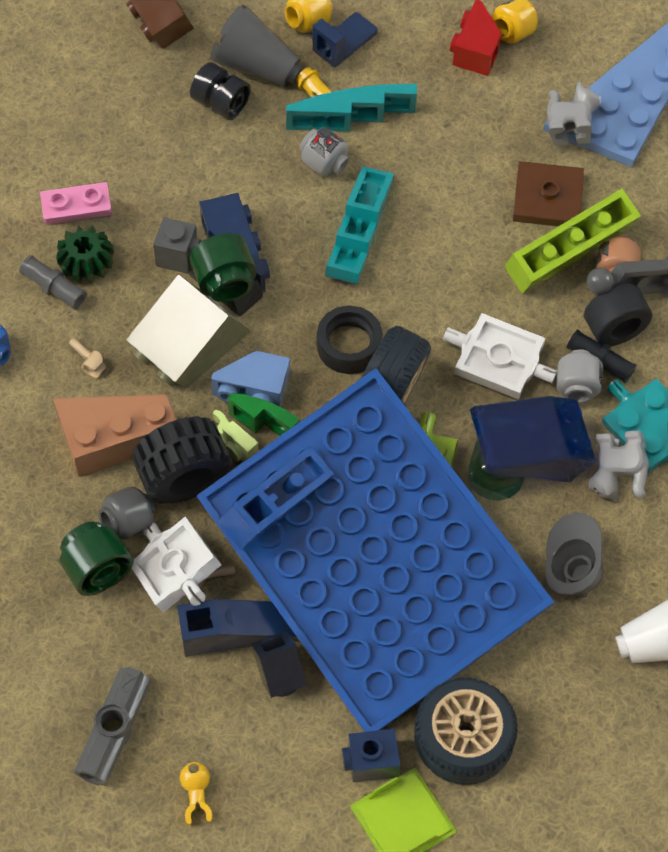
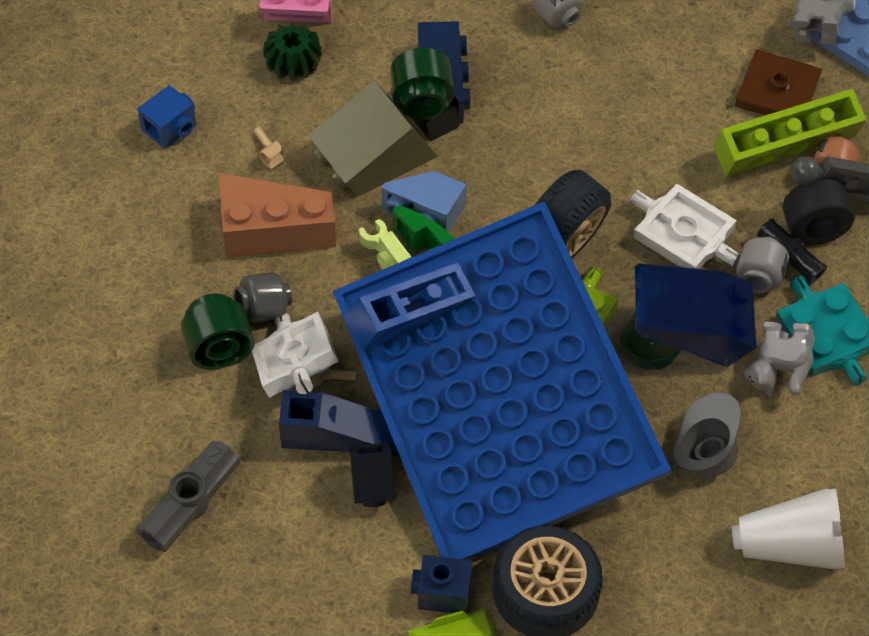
camera: 15 degrees right, 5 degrees down
(52, 282) = (254, 71): dark grey pin -> none
(174, 245) = (378, 56): dark grey brick -> none
(181, 459) = (327, 253): black tyre -> none
(195, 785) = (255, 571): yellow arm -> none
(341, 317) = (527, 160): black tyre -> none
(359, 225) = (575, 77): teal slope -> none

